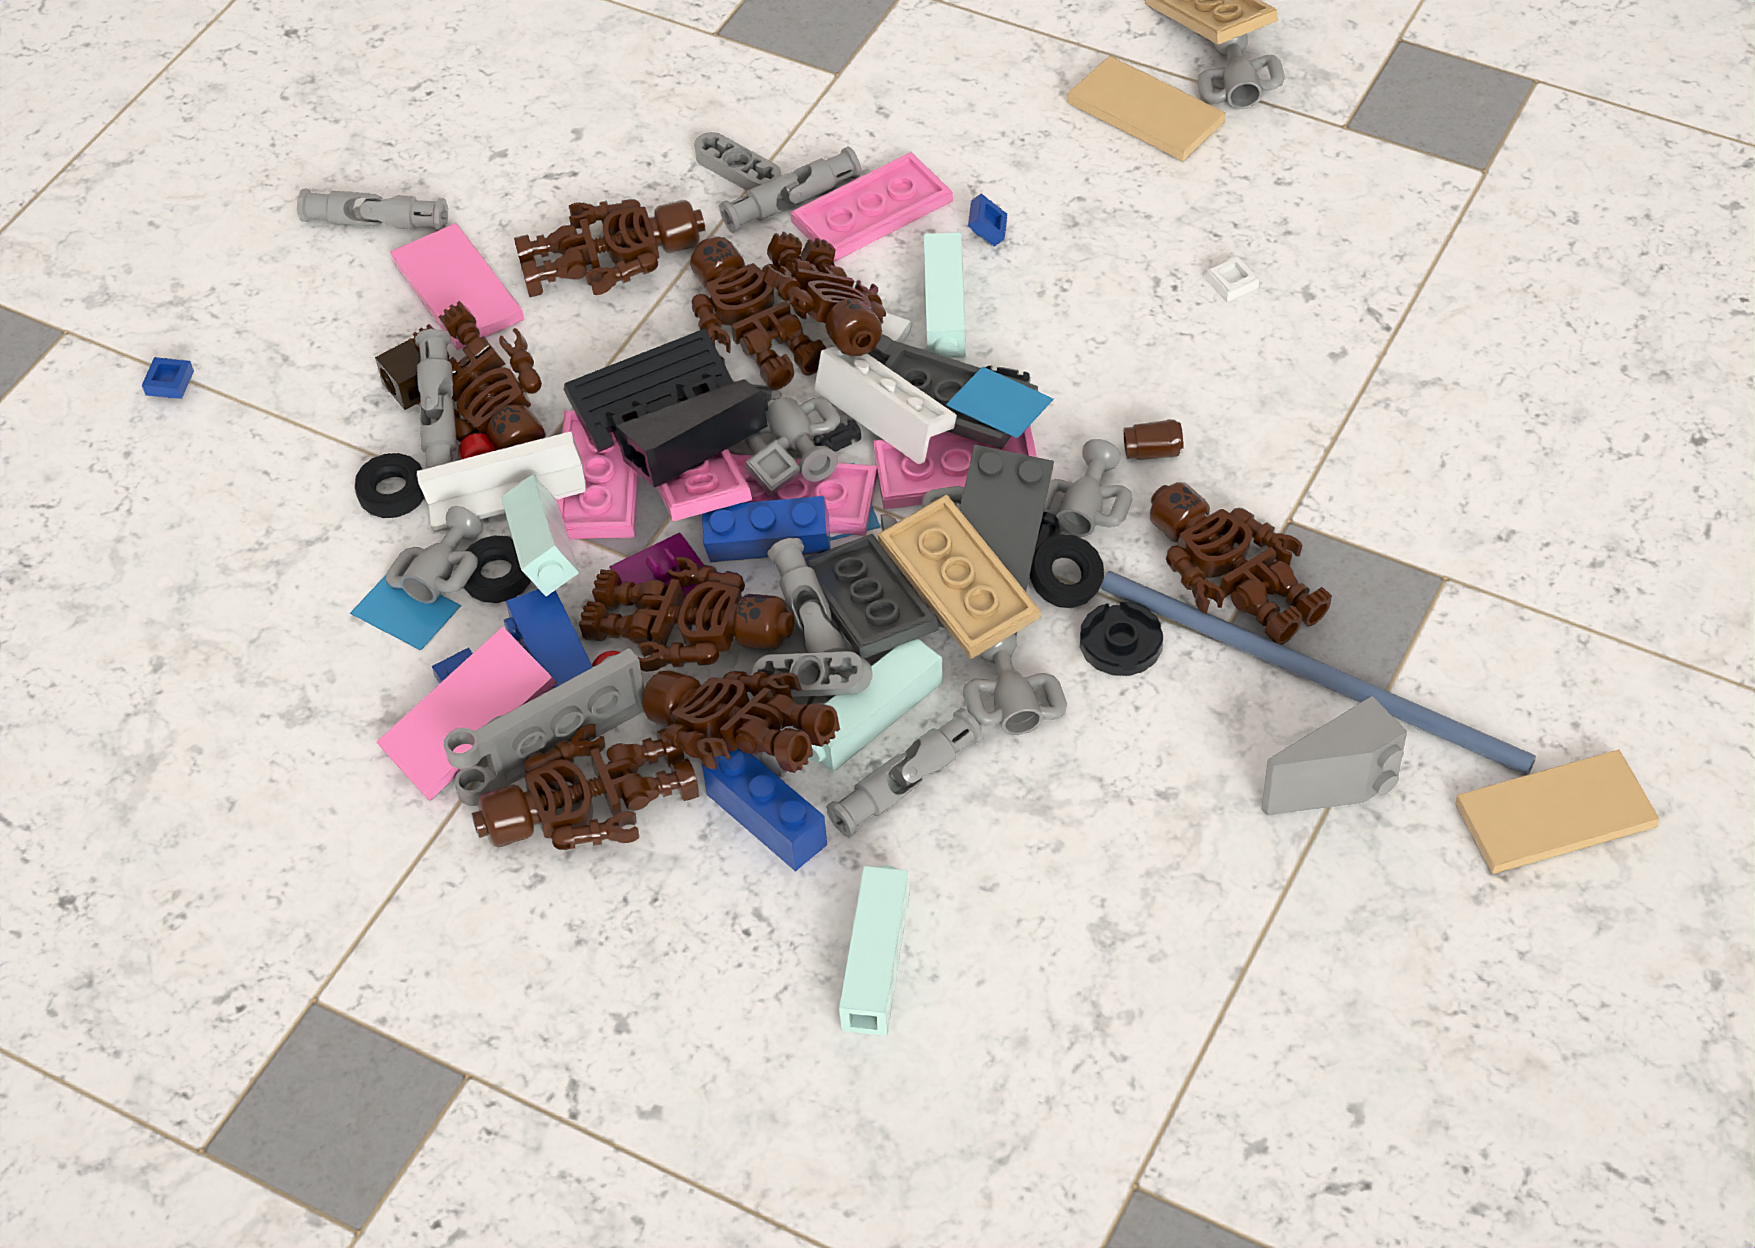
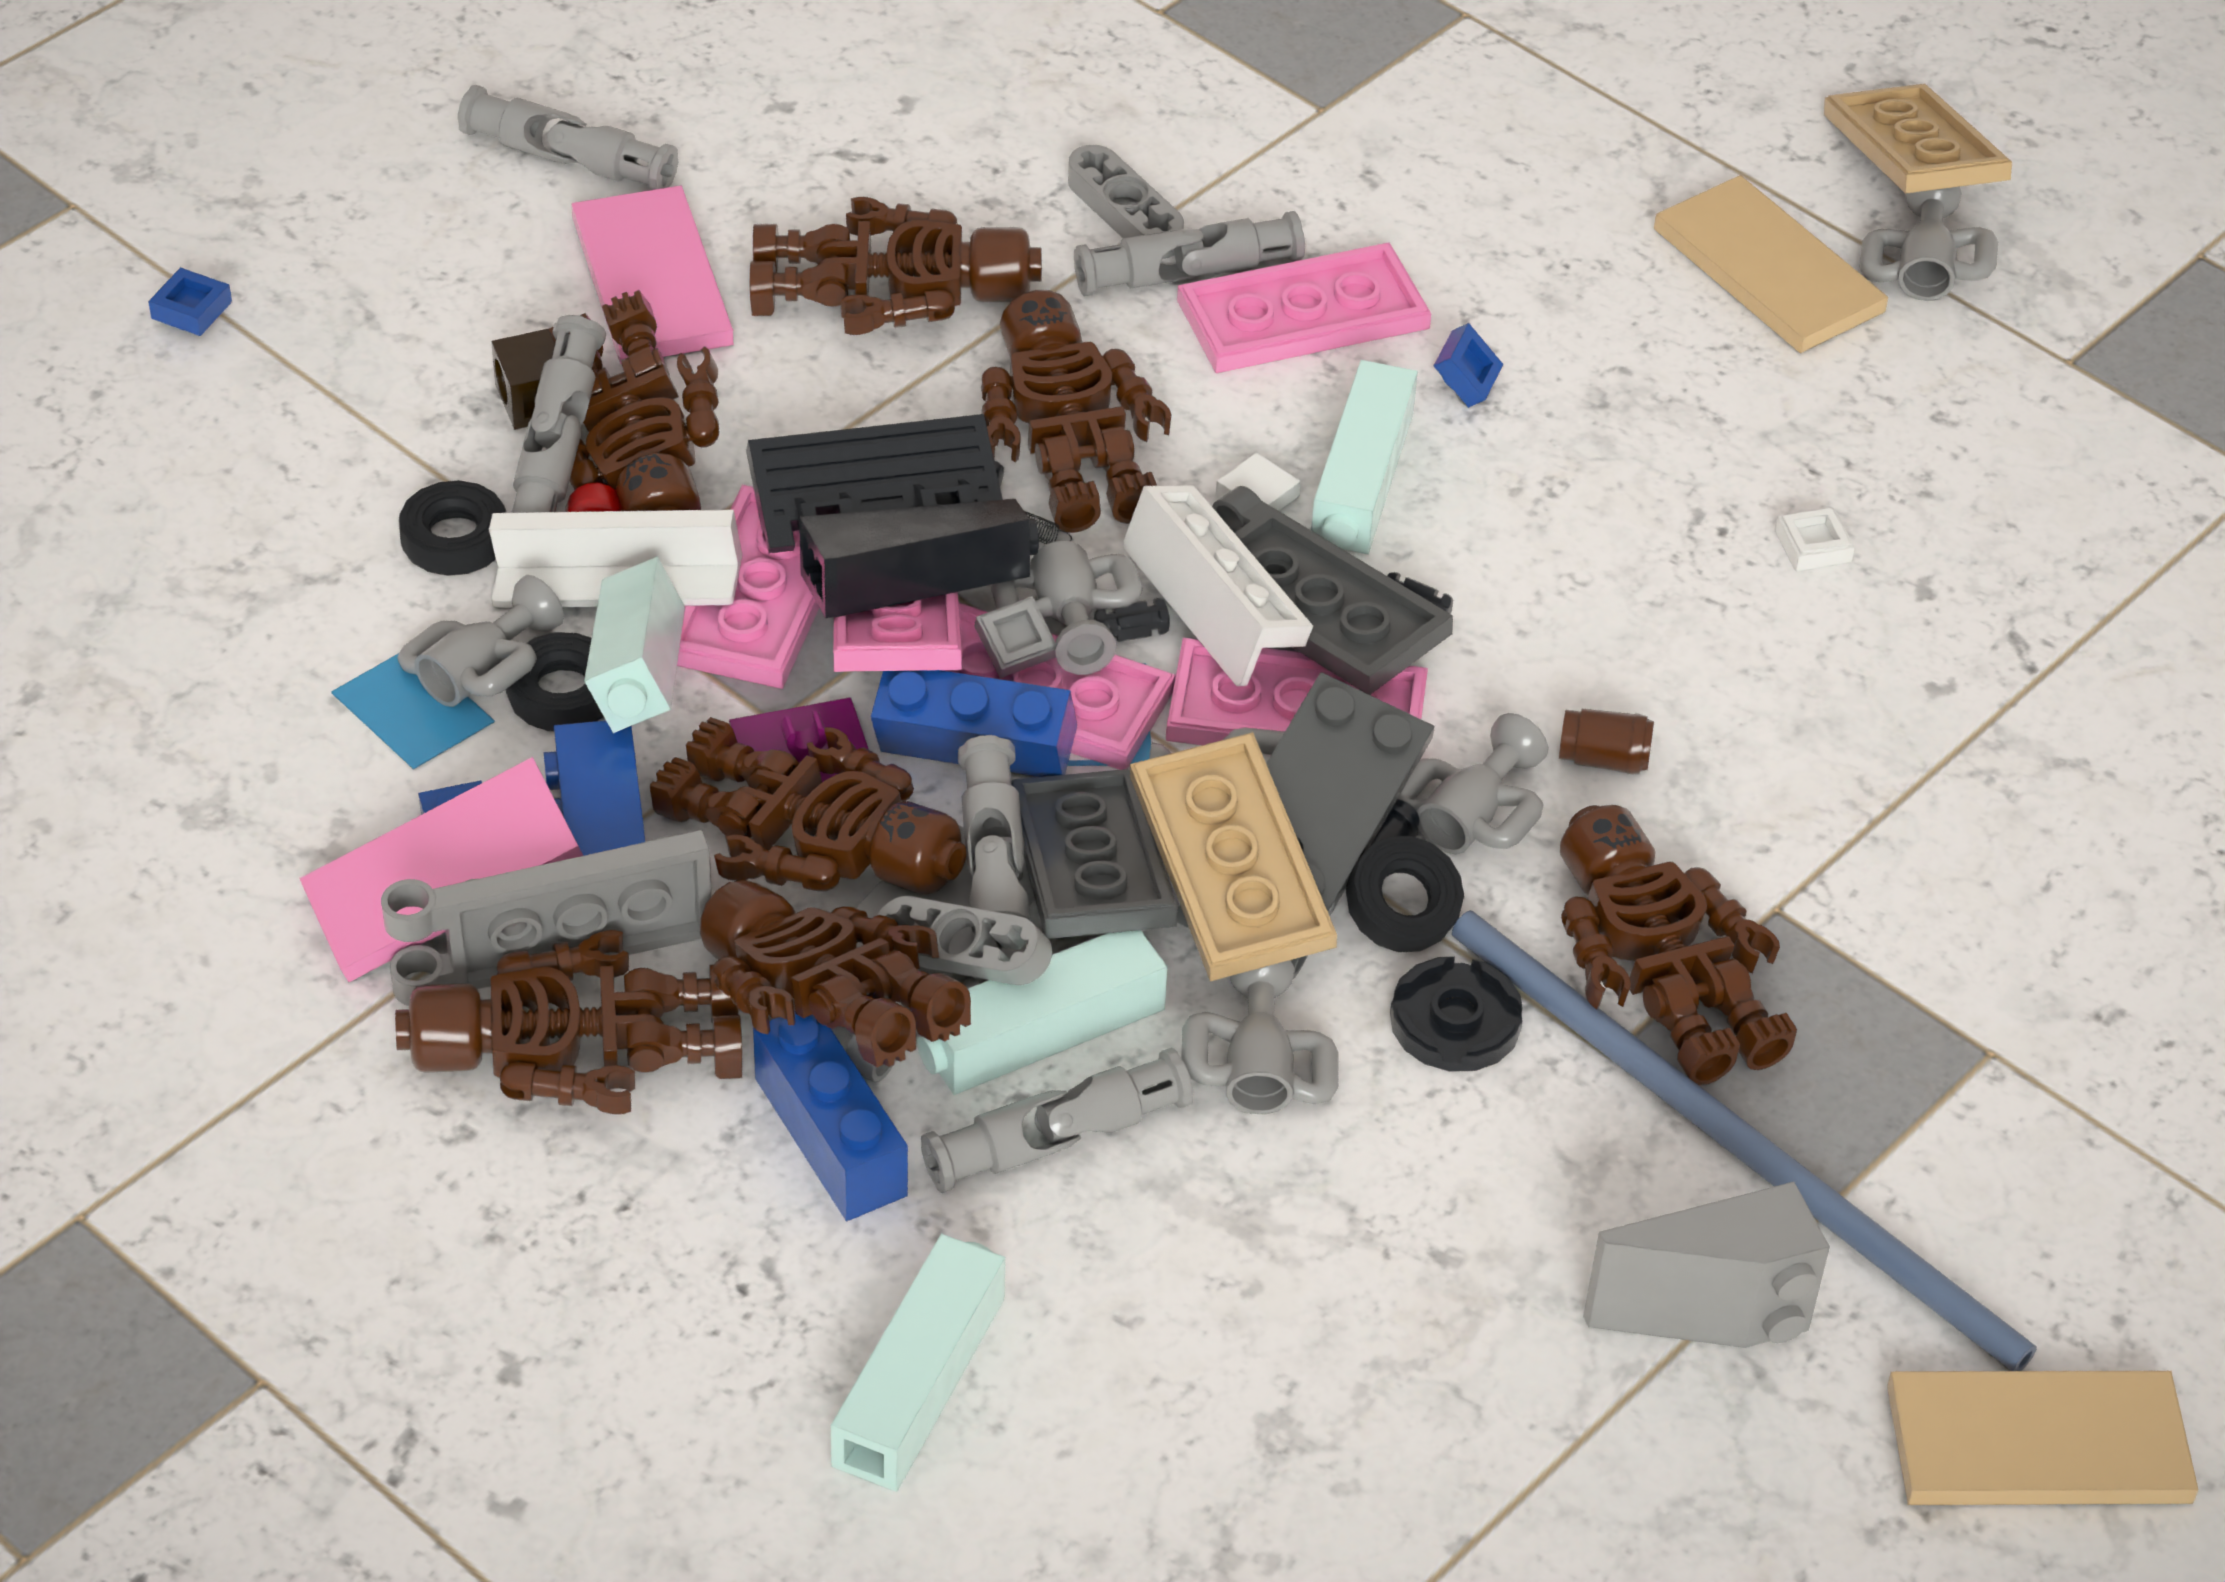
camera: 10 degrees right, 5 degrees down
(825, 292) = (1182, 407): reddish brown piece -> none
(999, 402) = (1387, 625): dark azure sticker -> none

